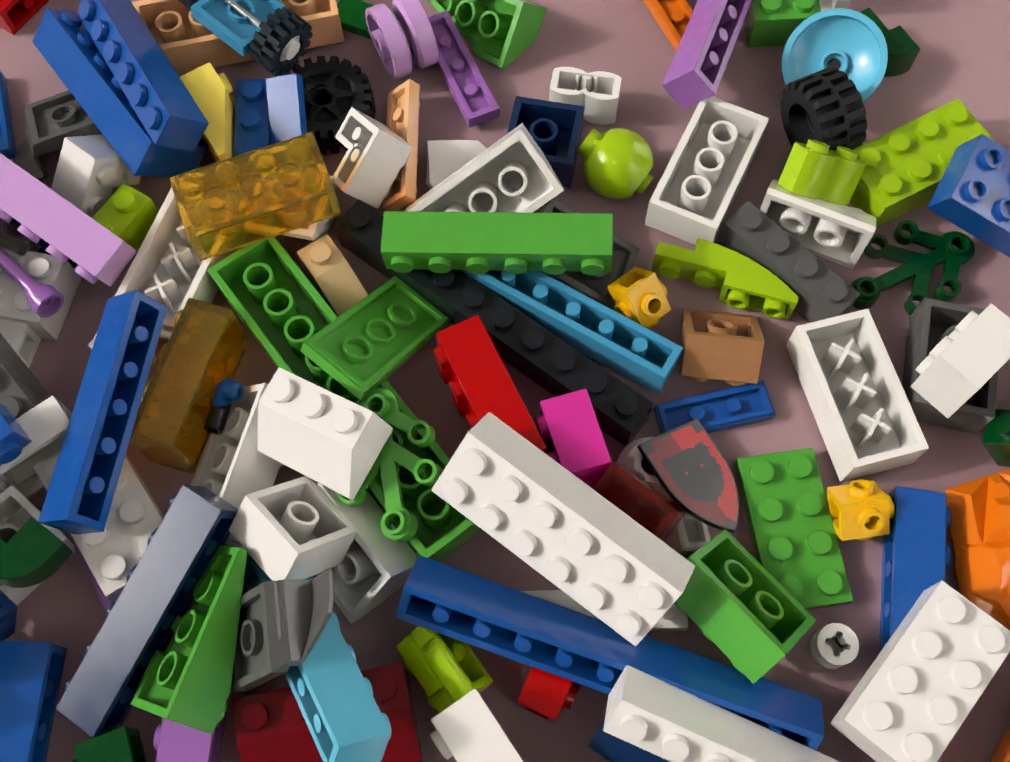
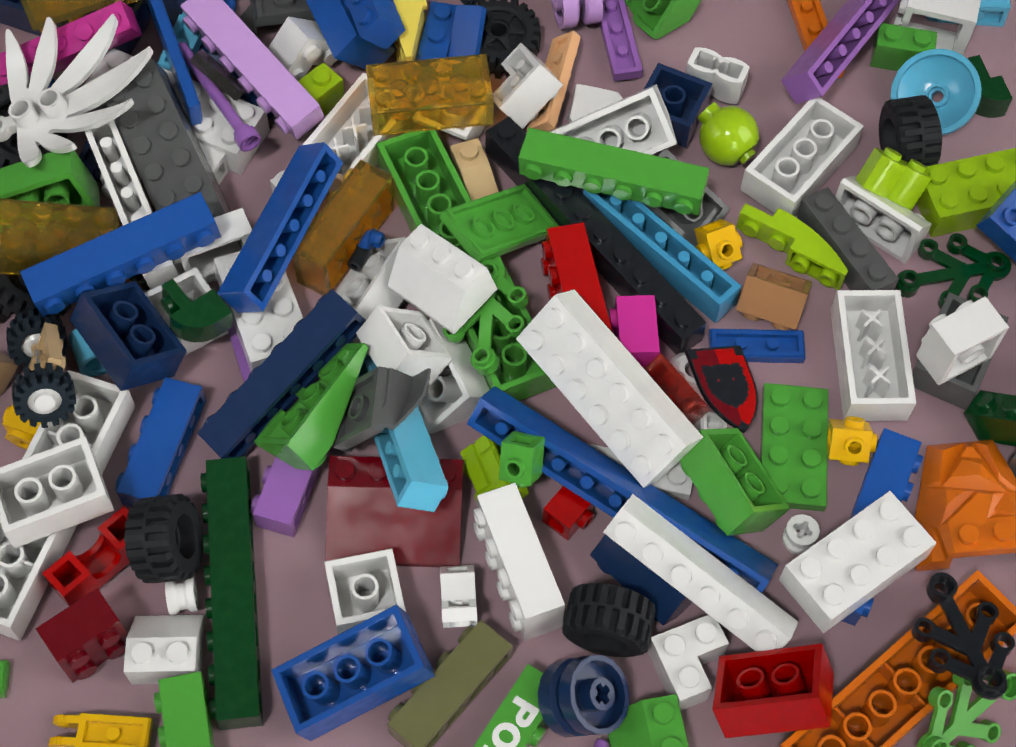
camera: 10 degrees right, 5 degrees down
(475, 652) = (521, 458): none -> bright green brick

